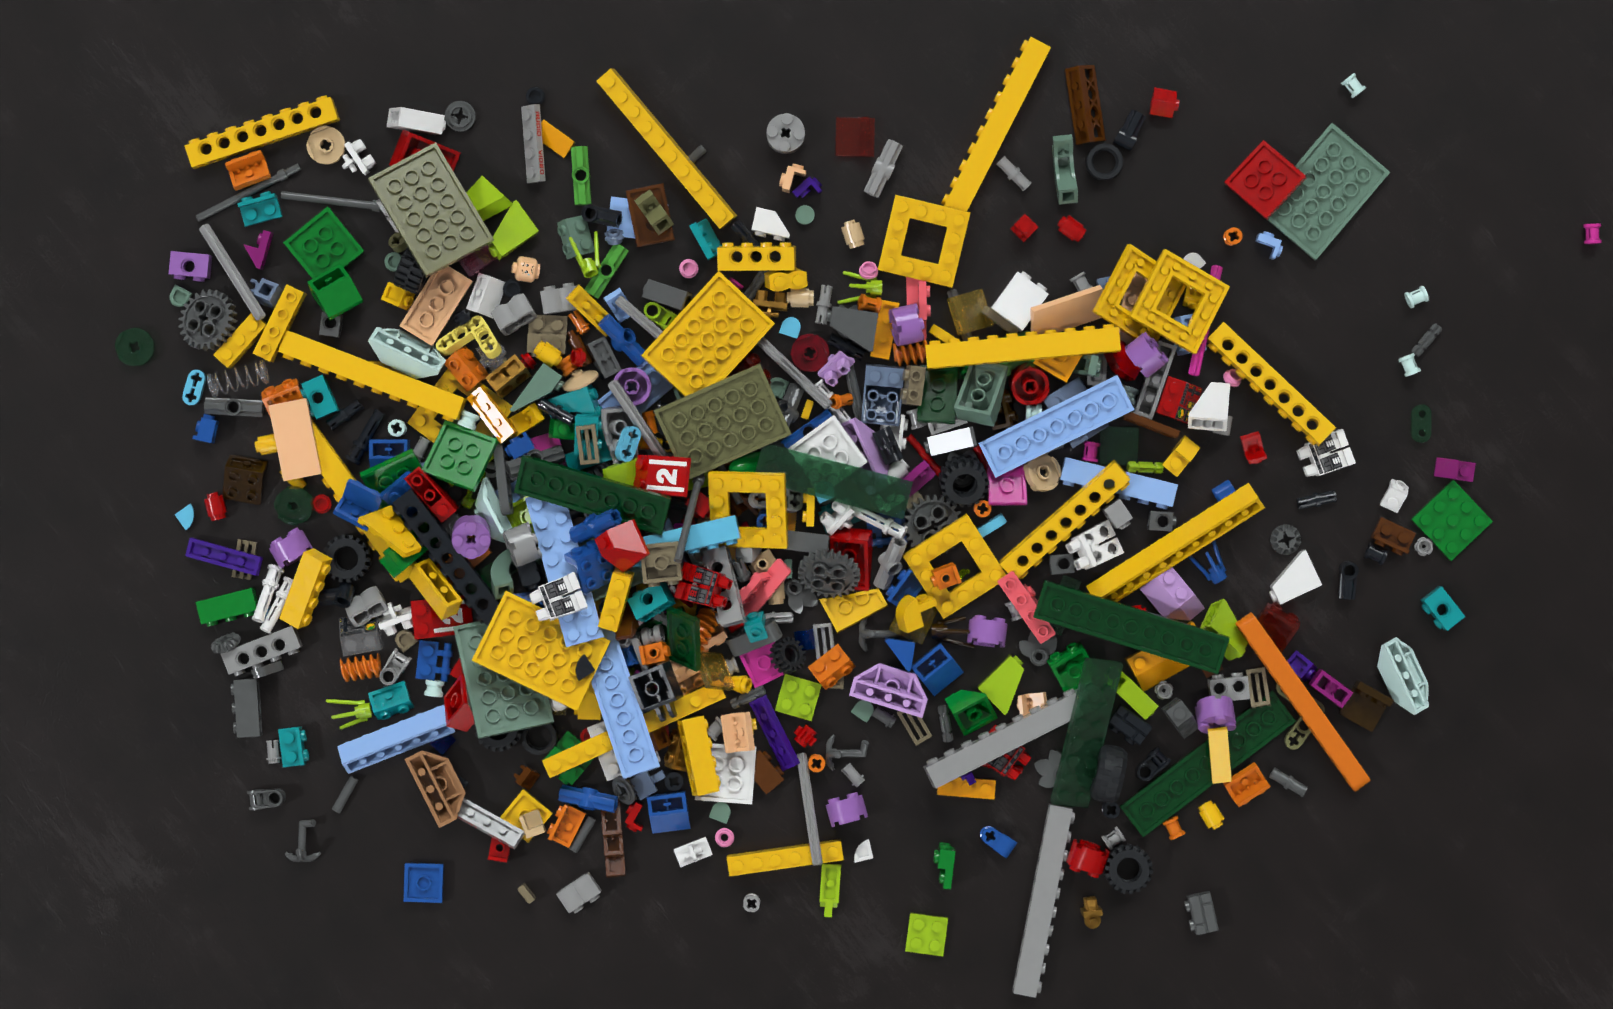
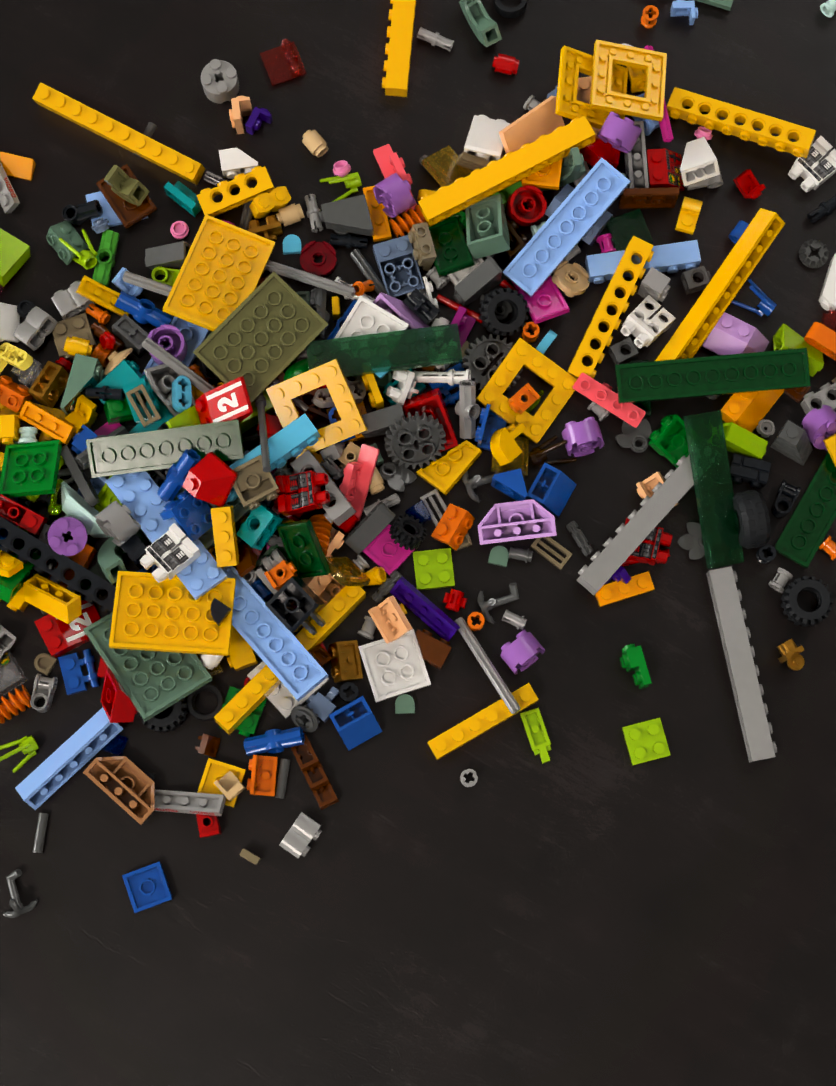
camera: 25 degrees left, 10 degrees down
(390, 700) = (51, 725): teal bracket -> none
(395, 615) = (22, 653): white hips -> none
(434, 688) = (88, 696): light aqua wheel -> none
(526, 269) = (31, 286): light nougat head -> none
(580, 162) = (46, 178): bright green piece -> none
(633, 811) = (322, 736): red bracket -> none
(693, 851) = (393, 751): white hips -> none
(698, 755) = (361, 656): yellow brick -> none
(720, 842) = (422, 722): bright pink plate -> none
(755, 626) = (367, 515): teal bracket -> none
(804, 215) = (265, 145): sand green tile -> none
(835, 367) = (346, 260): lavender hips -> none
(863, 851) = (554, 687): white tile -> none
(875, 303) = (348, 193): orange bush -> none
(883, 168) = (318, 78): light grey piece -> none
(952, 218) = (356, 98): yellow plate -> none
(970, 710) = (598, 515): green slope -> none
(1000, 842) = (678, 626): blue piece -> none
(1003, 683) = (617, 480): lime slope -> none
(1024, 227) = (464, 78): red brick -> none
(1087, 857) = (765, 604): red brick -> none
(1144, 467) = (663, 238): lime axle -> none

